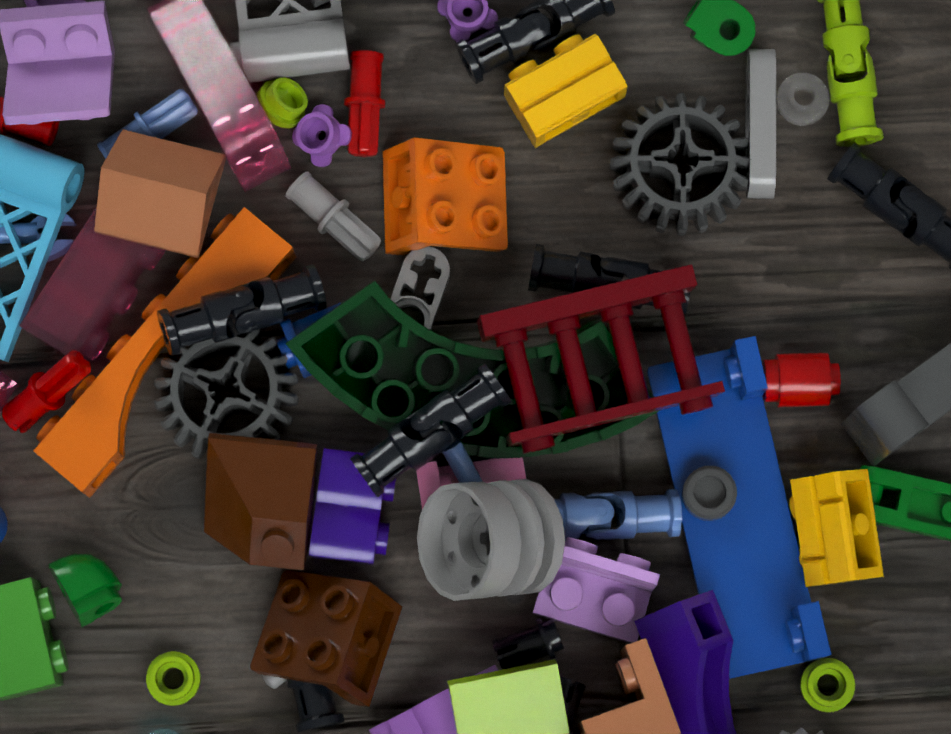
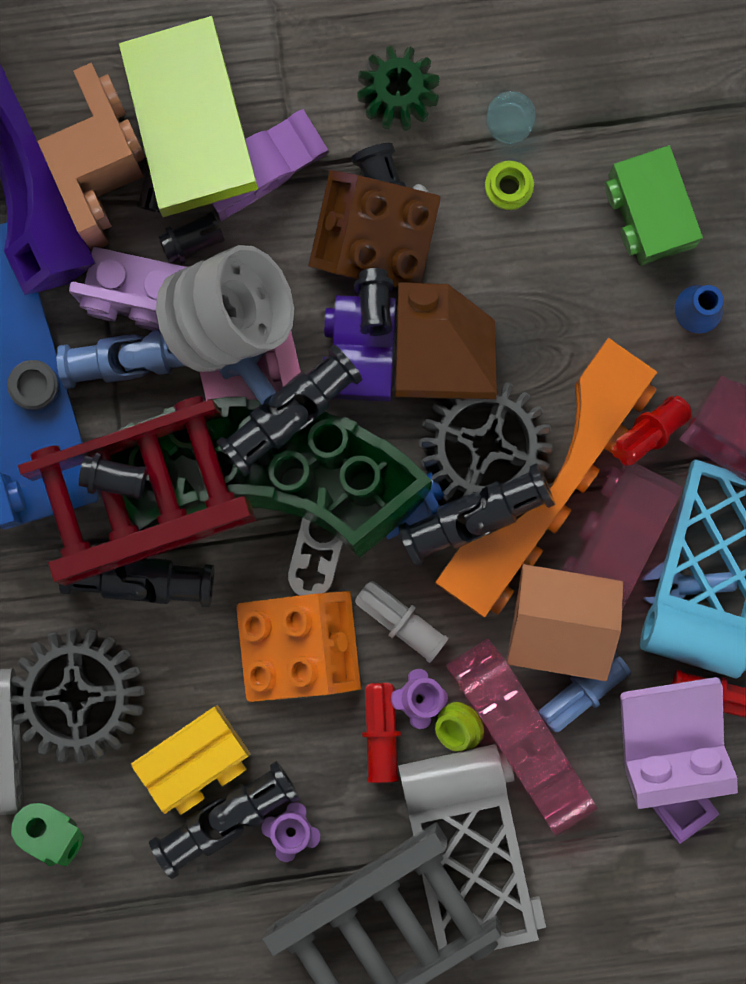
camera: 175 degrees right, 5 degrees up
(87, 586) = (596, 261): green piece -> none
(330, 548) = (374, 301): none -> black pin
(623, 368) = (112, 477): none -> black pin

